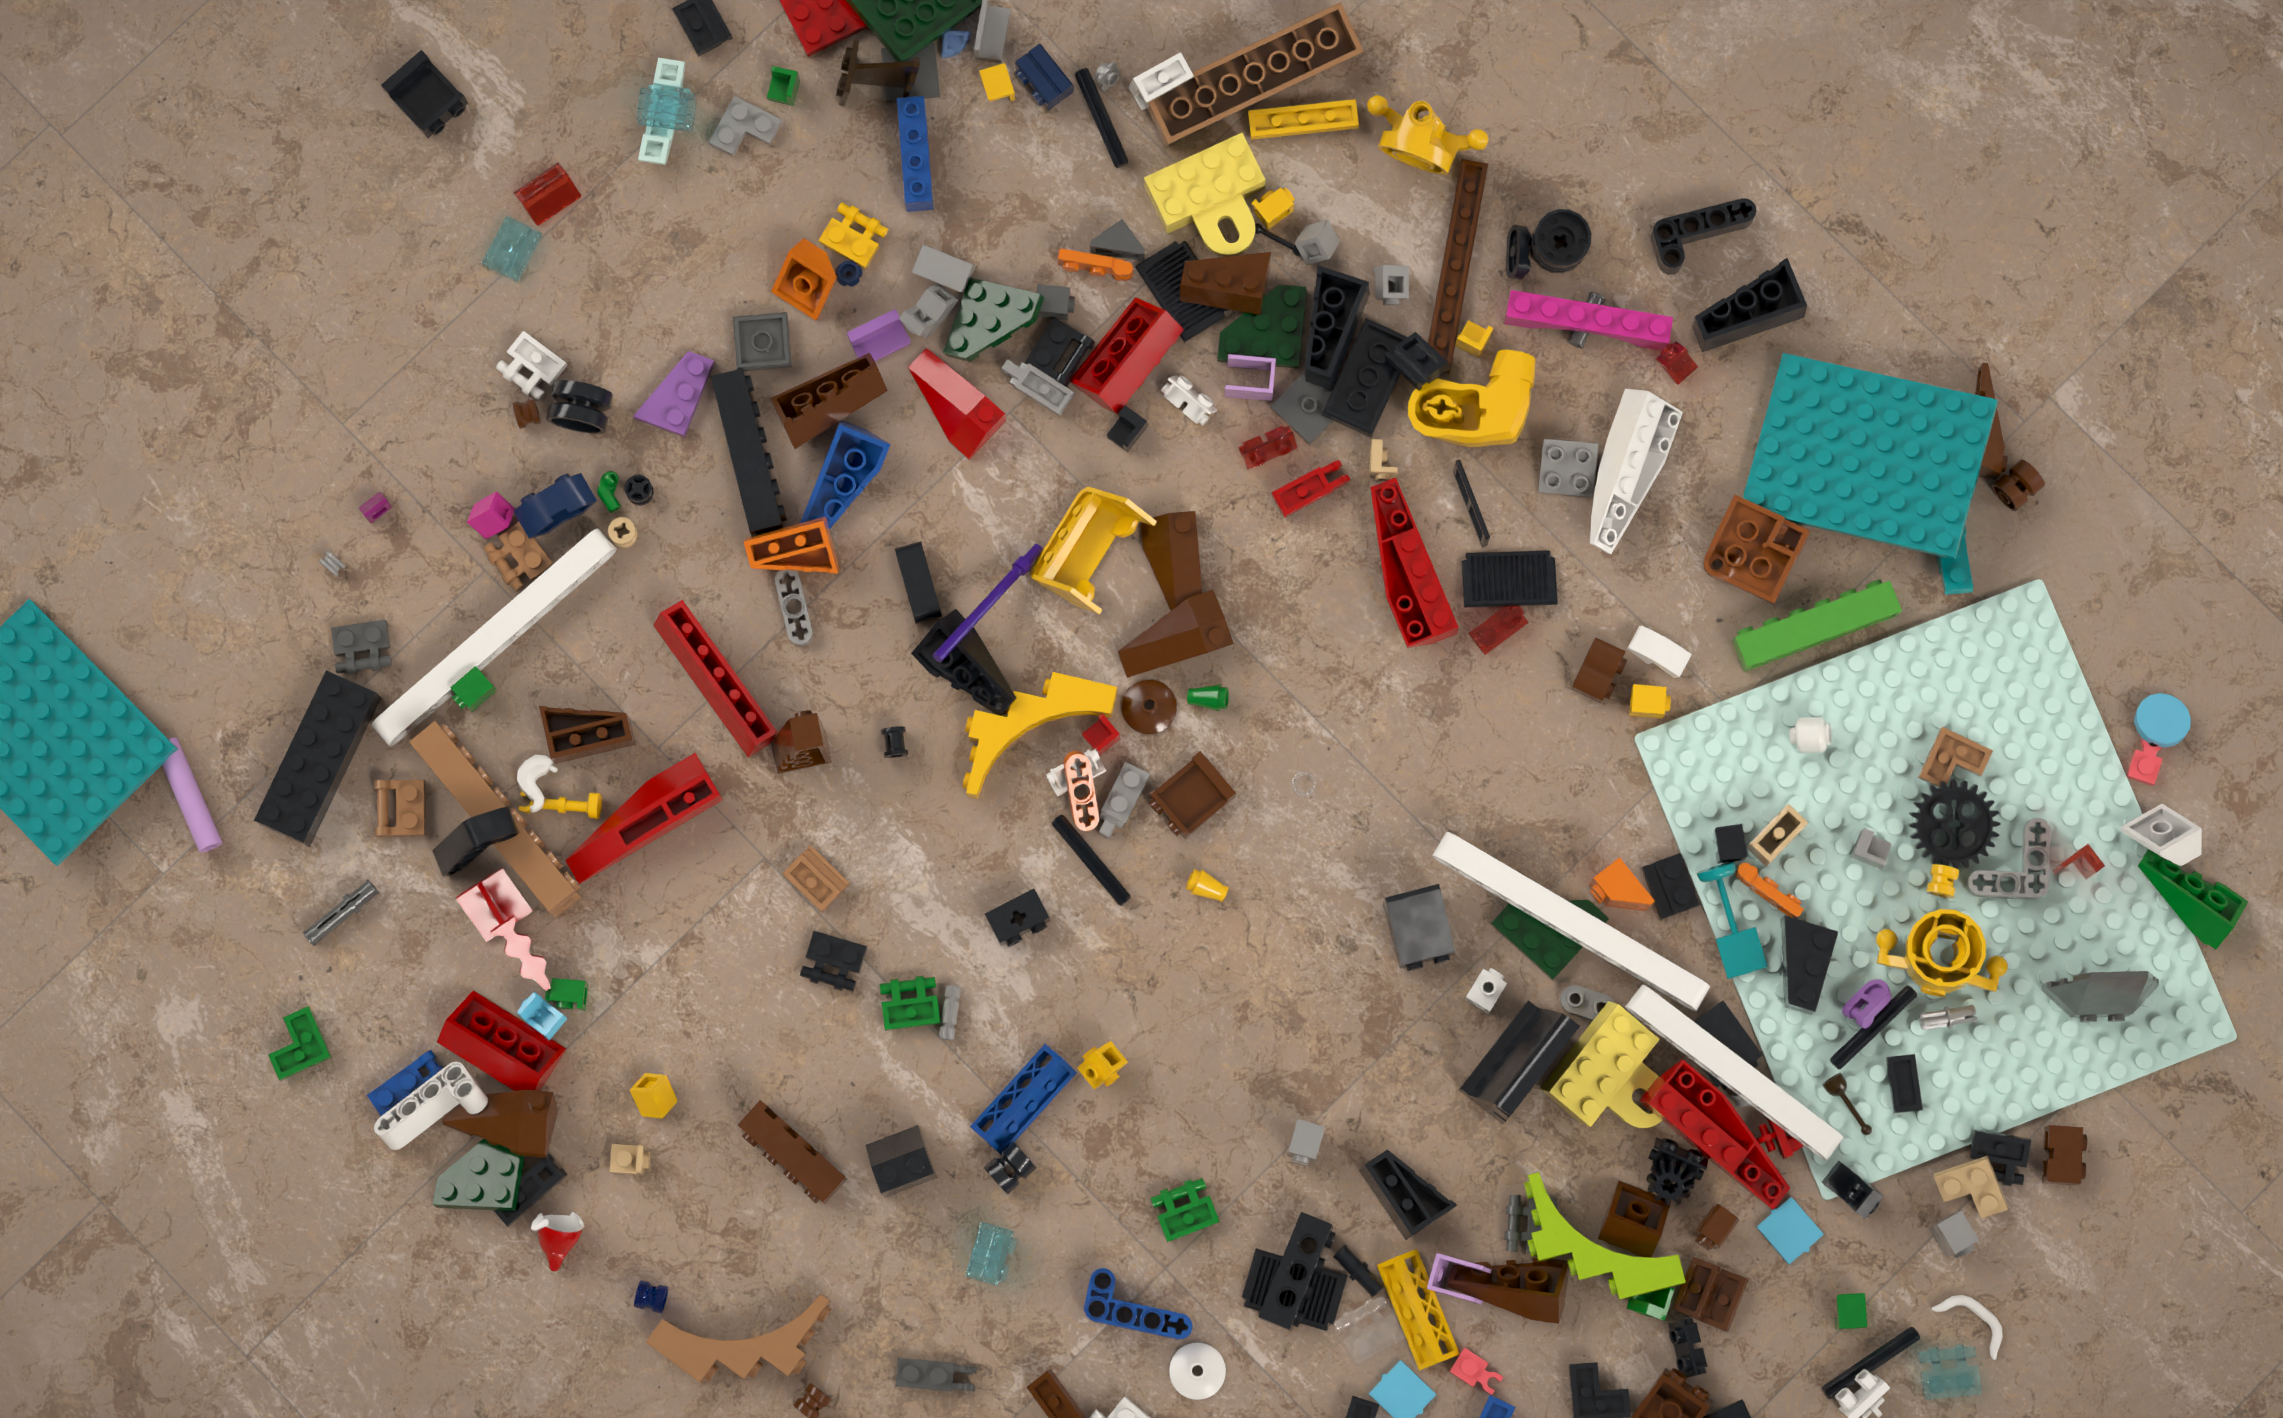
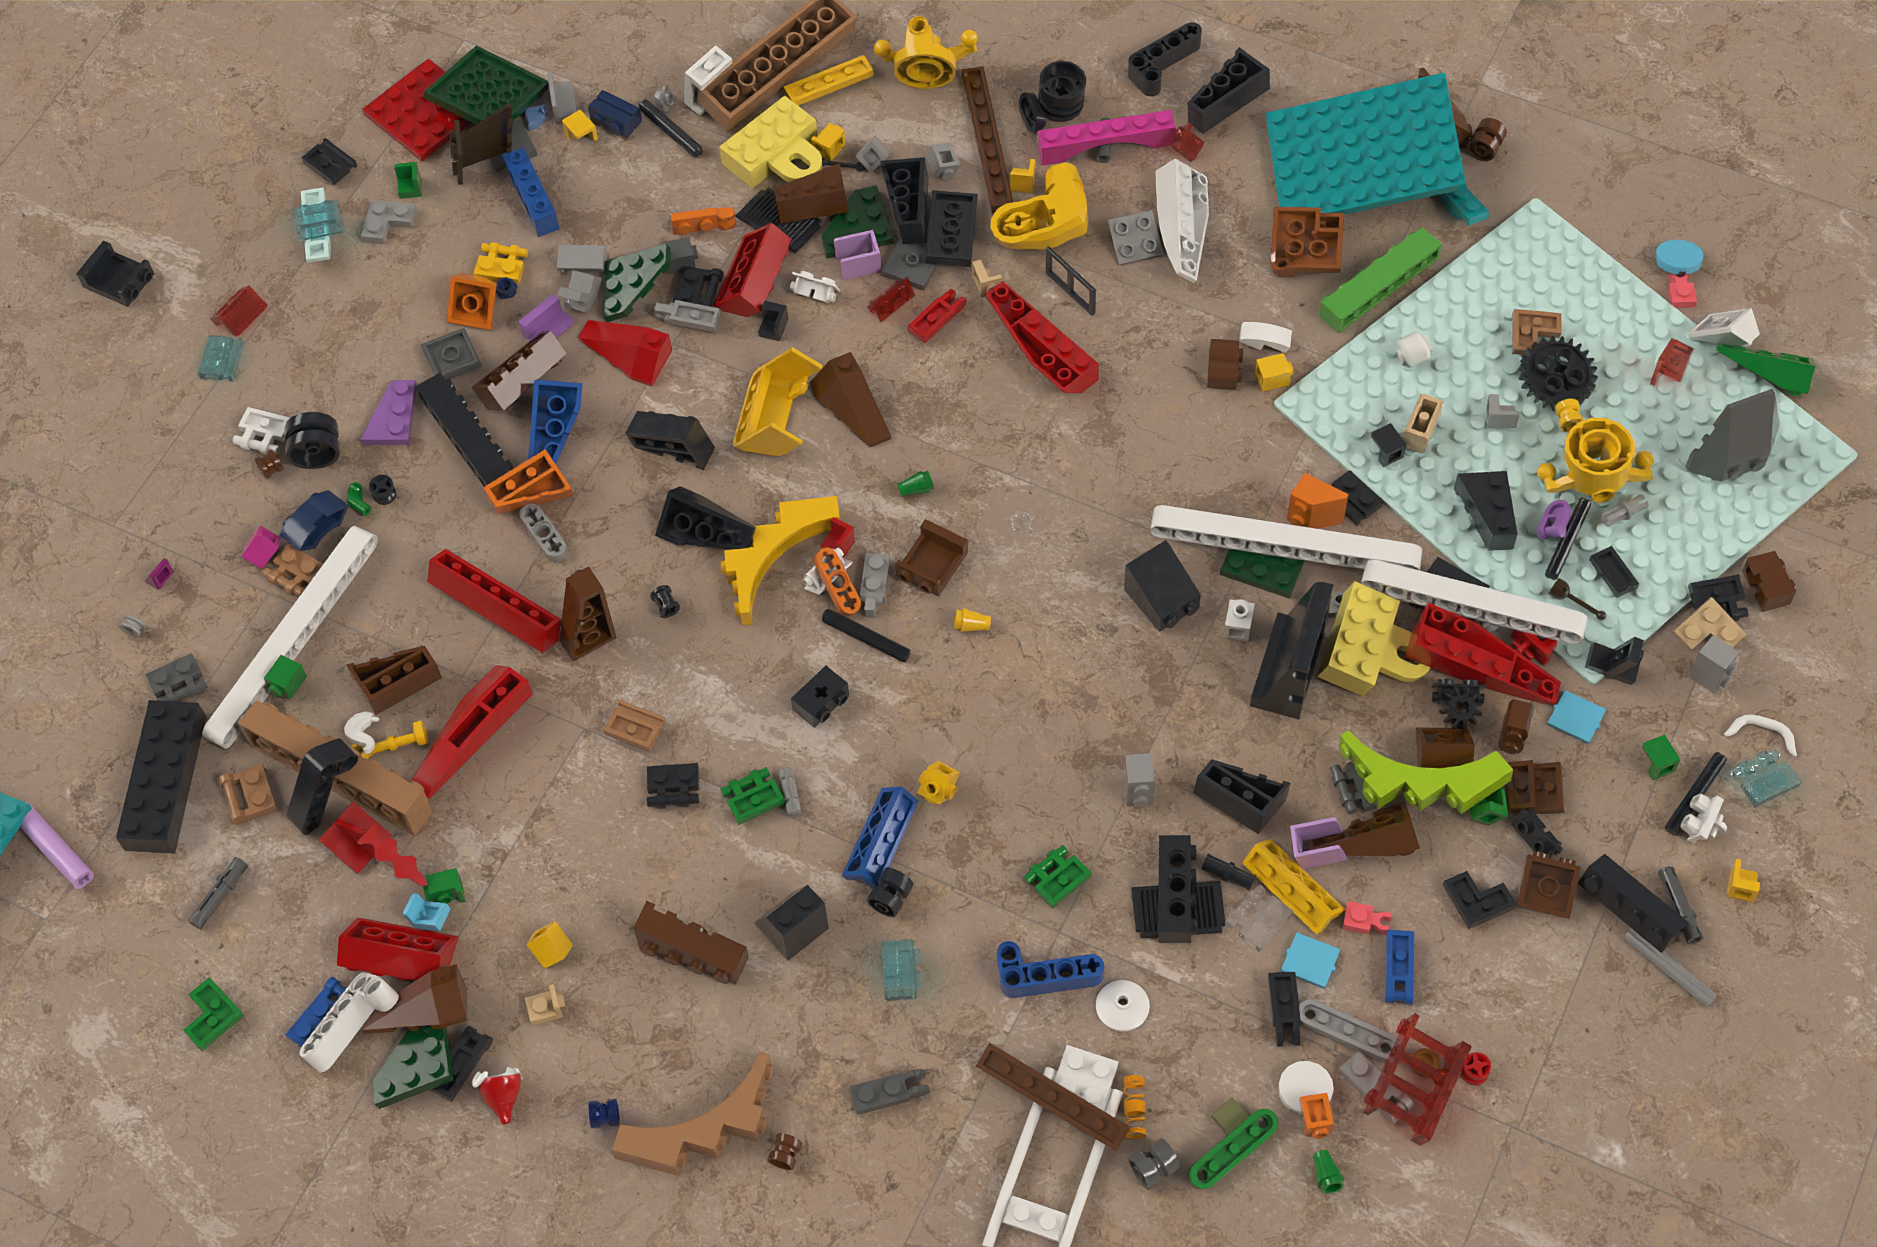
camera: 20 degrees left, 20 degrees down
(625, 537) = (384, 527): tan wheel -> none
(918, 582) = (641, 480): black beam -> none
(965, 541) = (671, 435): none -> black wedge
(1020, 567) = (722, 442): dark purple bar -> none
(1118, 242) = (717, 196): dark grey slope -> none
(1146, 720) = (871, 518): reddish brown dish -> none
(1184, 633) = (876, 445): reddish brown wedge -> none
(1417, 361) = (985, 199): black plate -> none
(1498, 628) = (1130, 361): clear red hinge -> none
(1509, 579) = (1123, 327): black window -> none
(1741, 950) = (1431, 520): teal piece -> none
(1768, 890) = (1432, 467): orange hinge -> none
(2022, 878) = (1631, 392): light grey beam -> none

